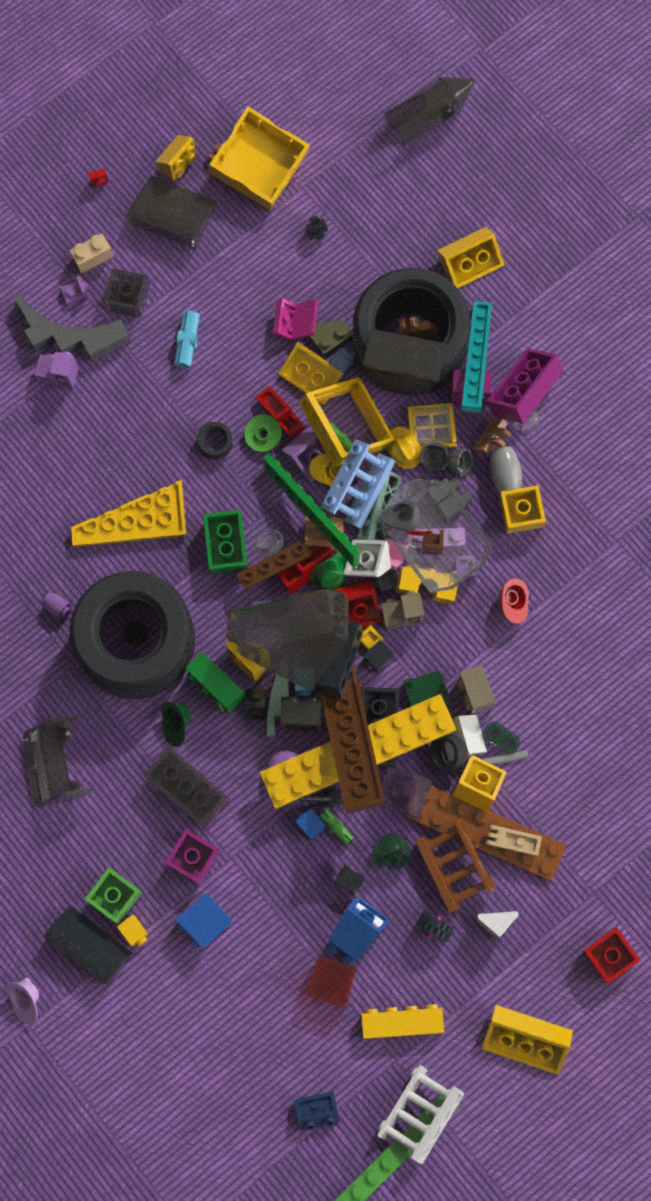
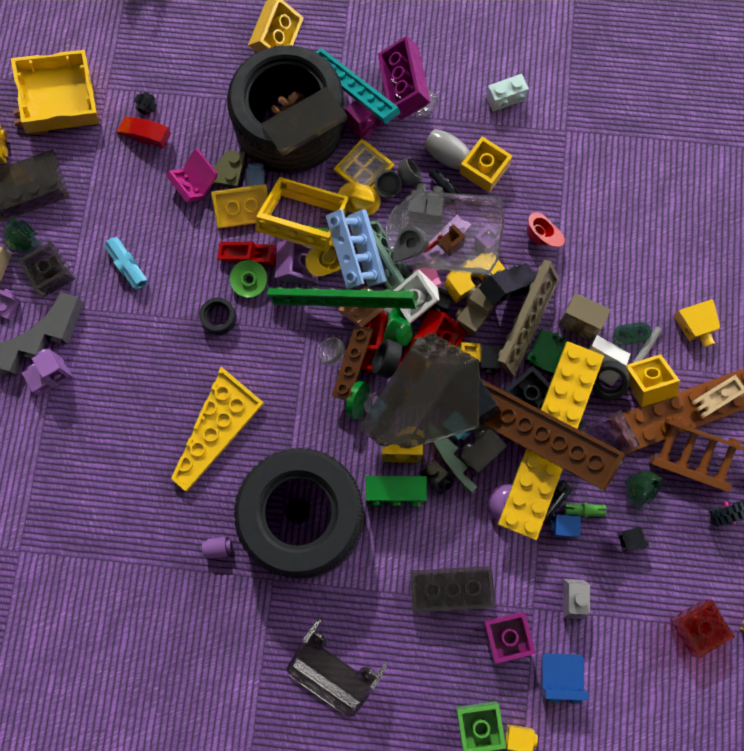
camera: 45 degrees left, 0 degrees up
(130, 250) = (20, 237): none -> clear green cylinder
(175, 720) = (393, 549): dark green piece -> none
(225, 542) = (299, 380): green brick -> none
(248, 595) = (355, 403): none -> green tile
(265, 878) = (576, 599): none -> light grey torso
(295, 249) = (144, 131): none -> red slope
(298, 583) = (386, 358): none -> black tyre
(356, 930) = (680, 571): blue hips -> none
(434, 653) = (529, 318): none -> dark tan plate
(442, 613) = (507, 283): none -> black brick
(479, 496) = (443, 181): none -> black pin
(491, 436) = (412, 136): nougat hinge -> none
(560, 777) = (699, 322): none -> yellow torso
(598, 469) = (507, 92): none -> light aqua brick

